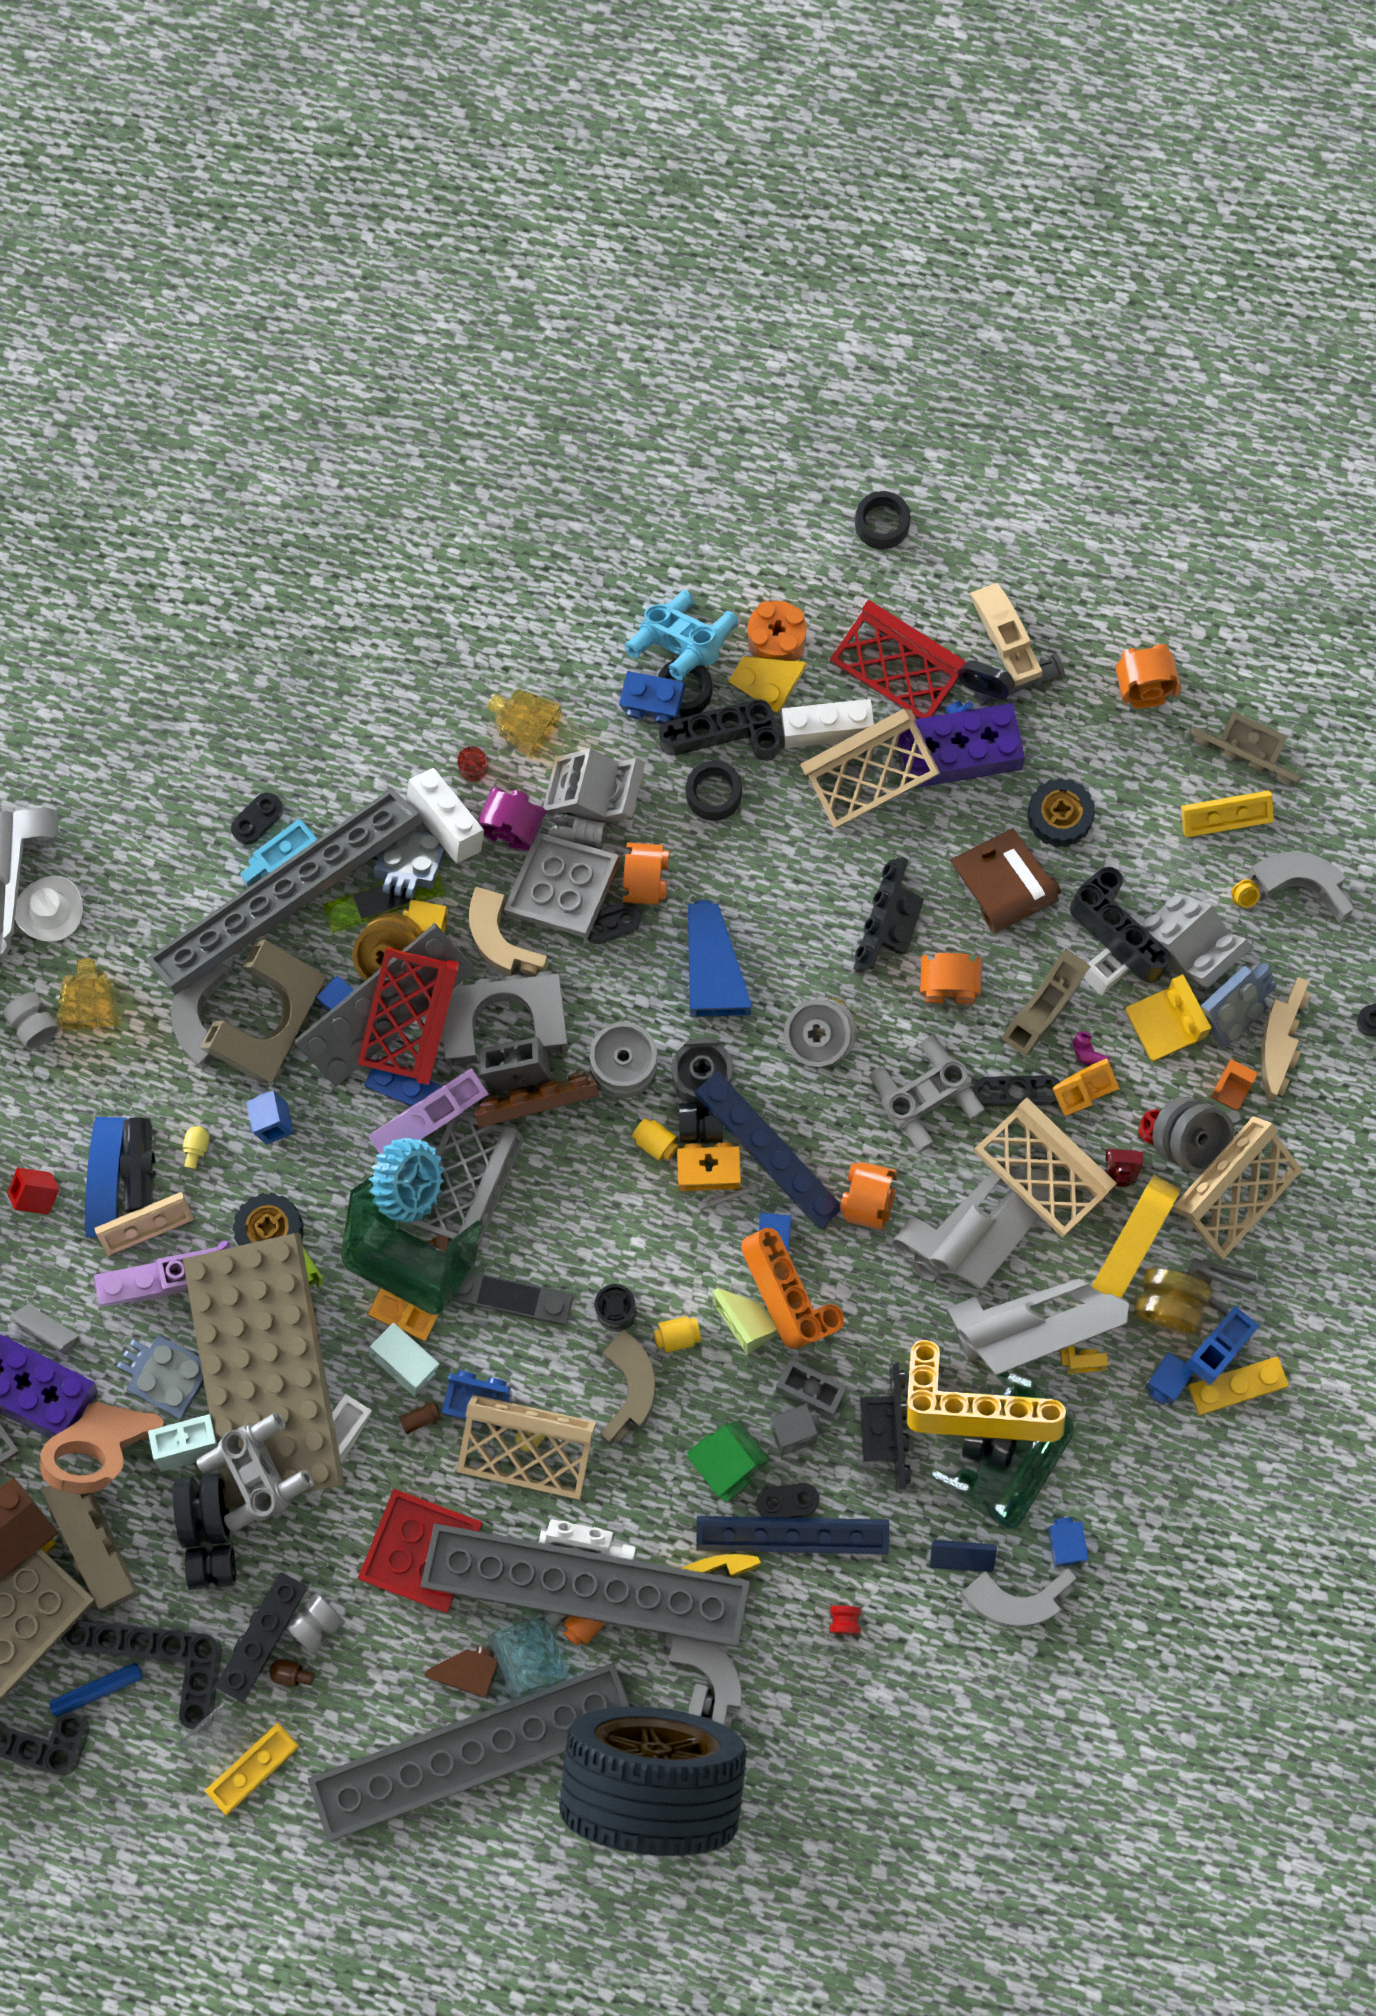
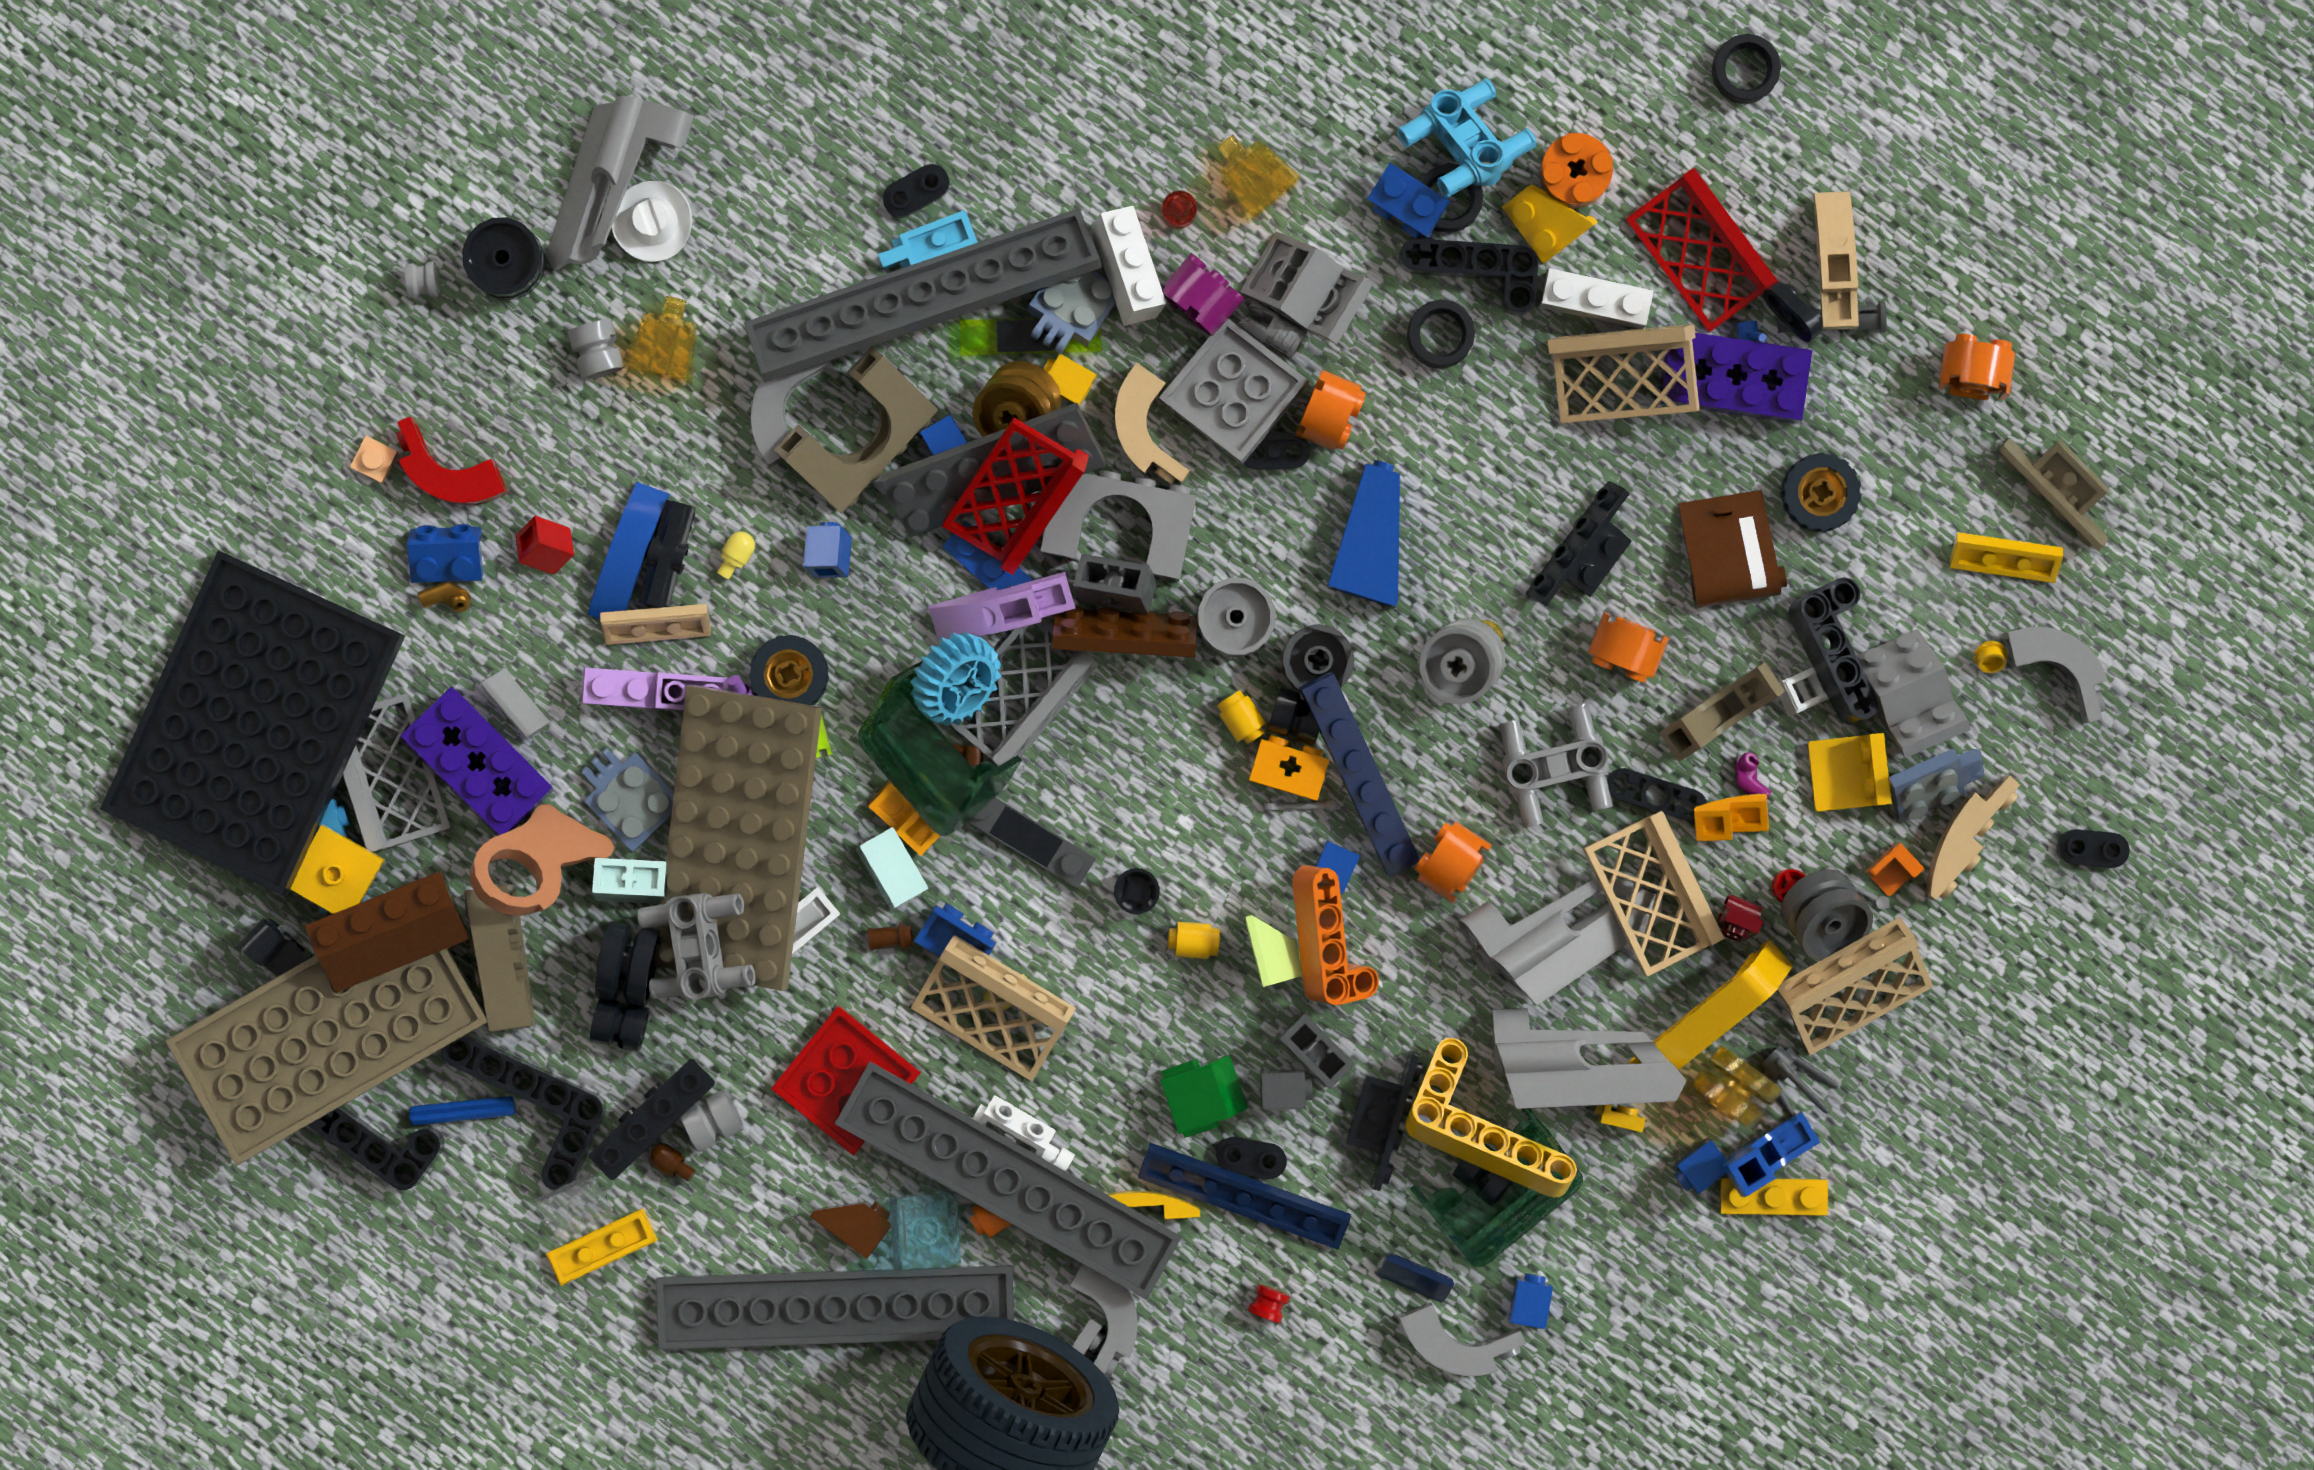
camera: 10 degrees right, 15 degrees up
(633, 1362) = (1138, 978): dark tan arch -> none

